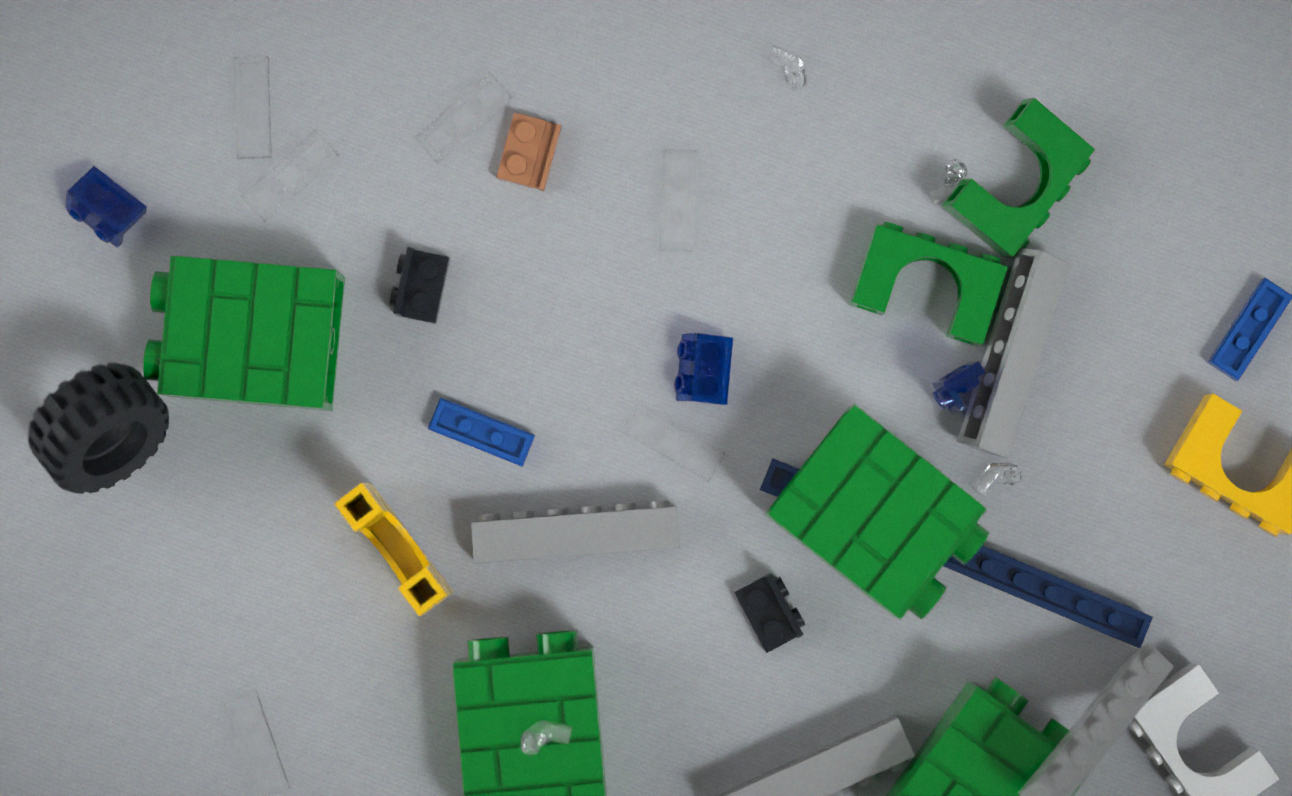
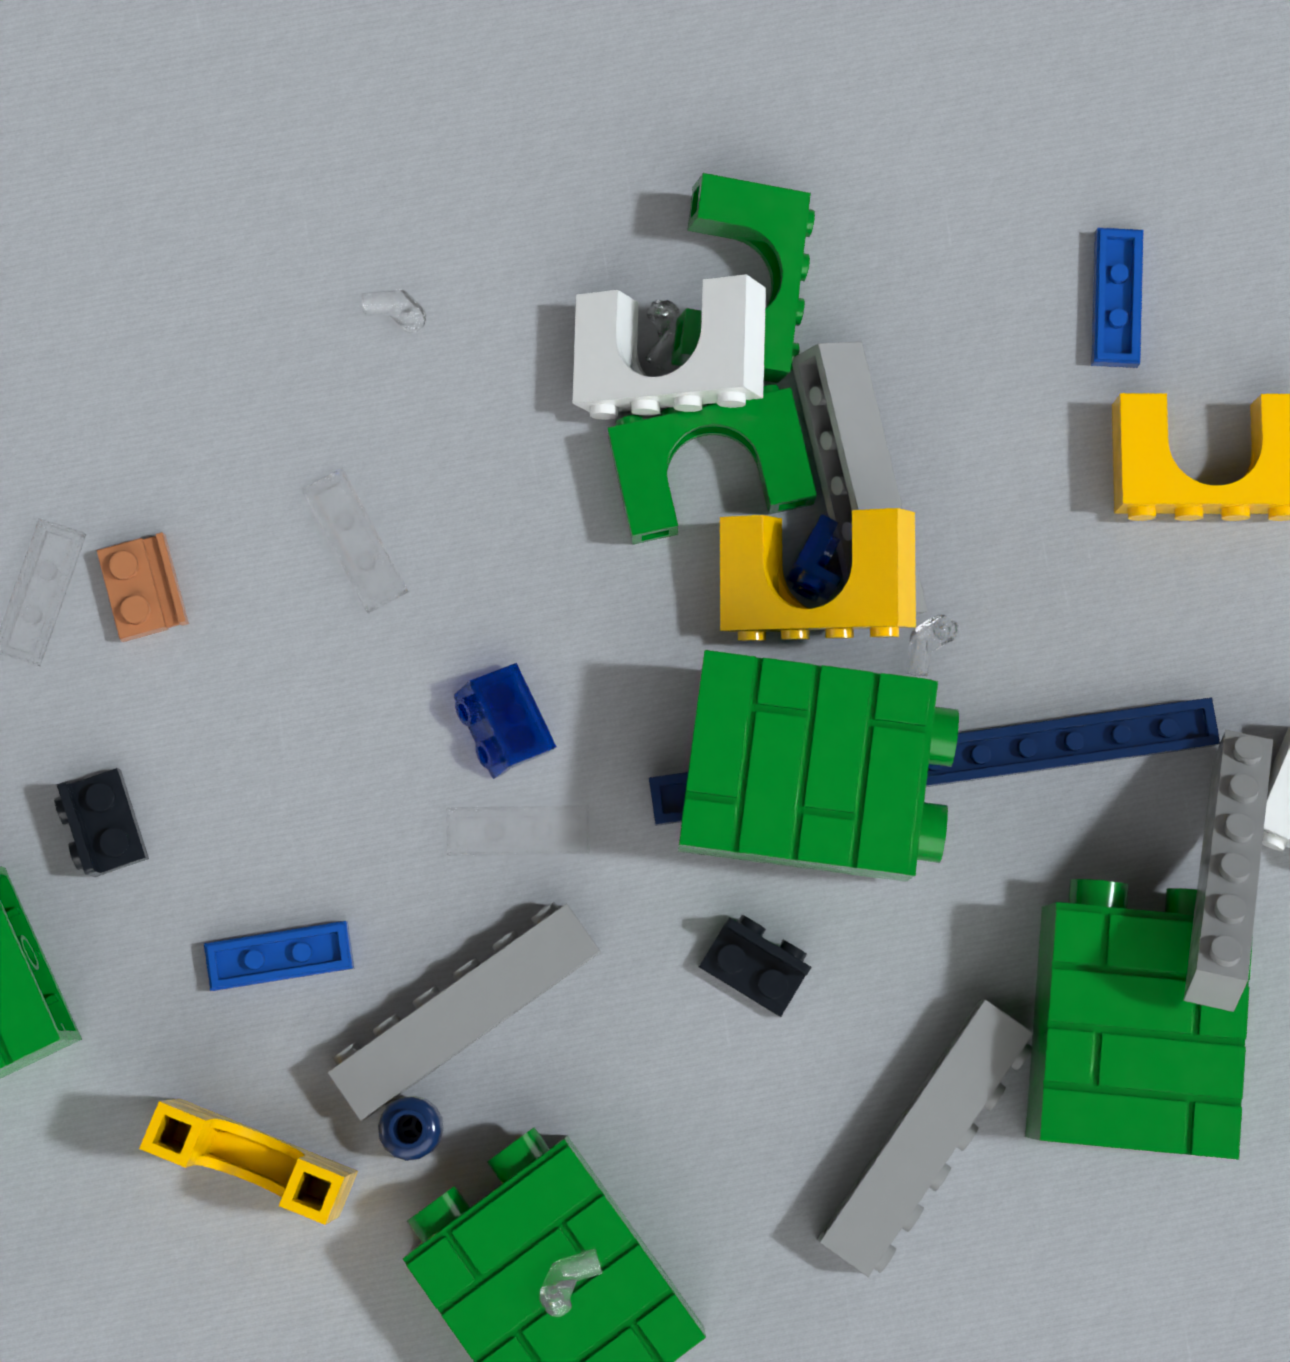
camera: 30 degrees left, 5 degrees down
(489, 582) = (393, 1129): none -> dark blue head
(971, 232) = (721, 370): none -> white arch
(982, 431) = (875, 598): none -> yellow arch

